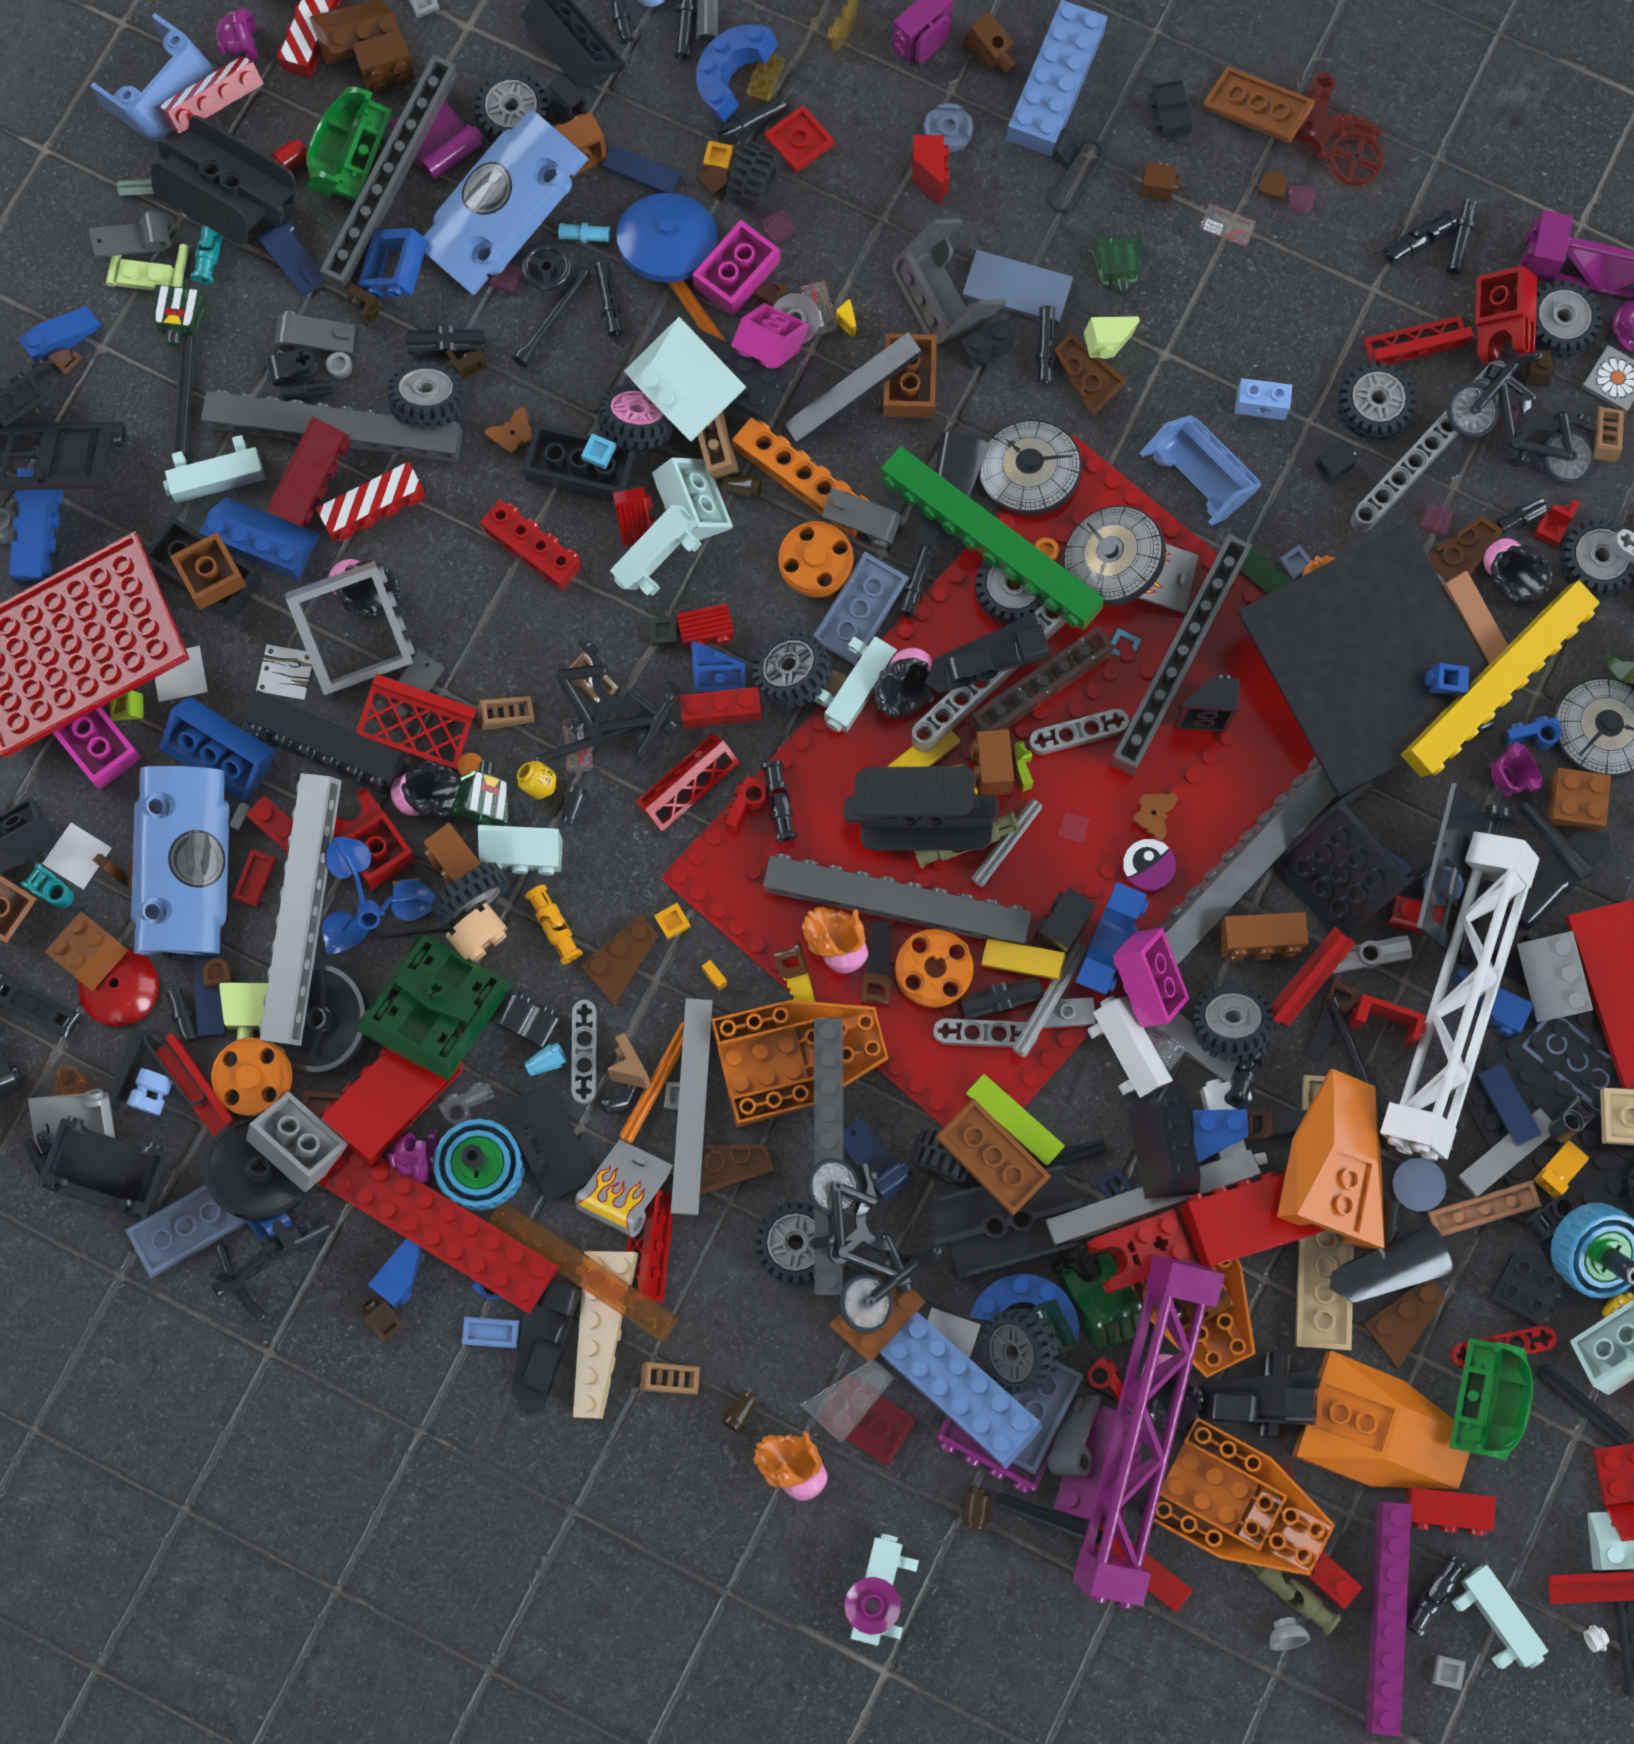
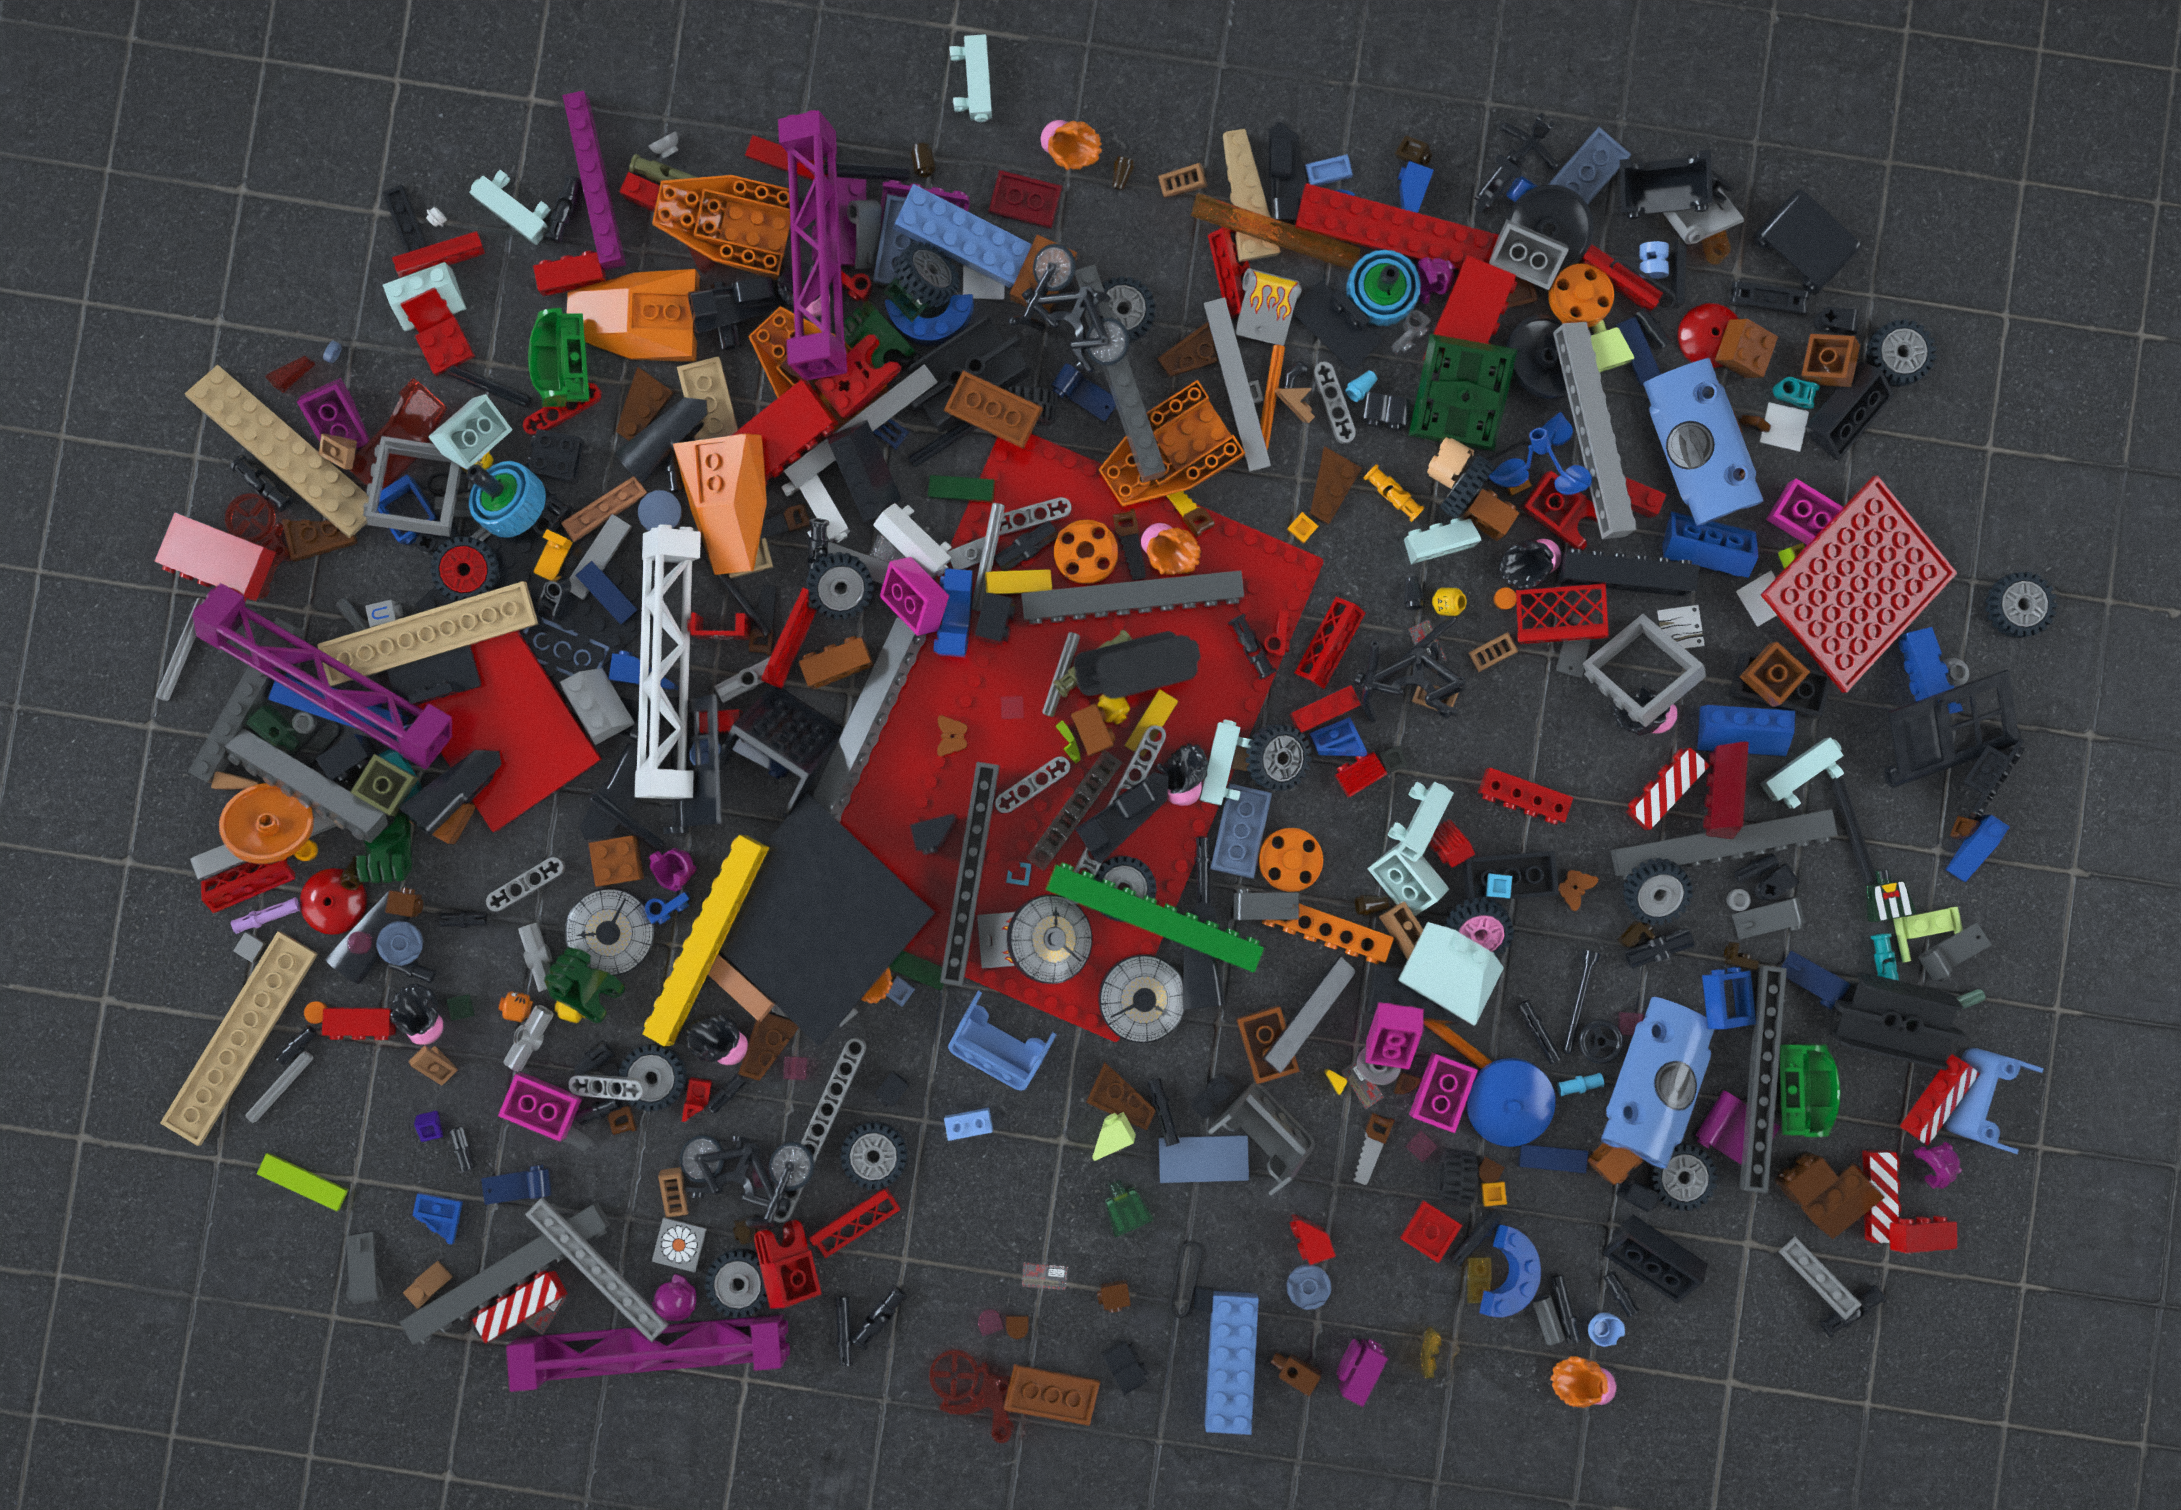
camera: 160 degrees right, 10 degrees up
(216, 972) = (1639, 368): reddish brown tile -> none
(239, 817) = (1670, 495): dark grey tile -> none
(254, 878) = (1639, 453): red tile -> none
(291, 154) = (1852, 1069): red brick -> none
(482, 797) = (1487, 572): clear green torso -> none
(714, 975) = (1254, 493): light orange tile -> none
(831, 242) = (1372, 1148): none -> light grey piece
(848, 1400) = (1044, 203): clear wing -> none
(872, 1621) = (977, 48): magenta dish -> none
(1016, 1120) = (985, 456): lime tile -> none
(1048, 547) = (1107, 929): orange tile -> none
(1054, 1093) = (961, 488): none -> dark green tile
(1149, 865) = (943, 693): tile -> none
(1217, 1130) = (826, 495): blue wing -> none
(1448, 1672) = (539, 159): light grey tile -> none
(1455, 679) = (741, 920): blue brick -> none

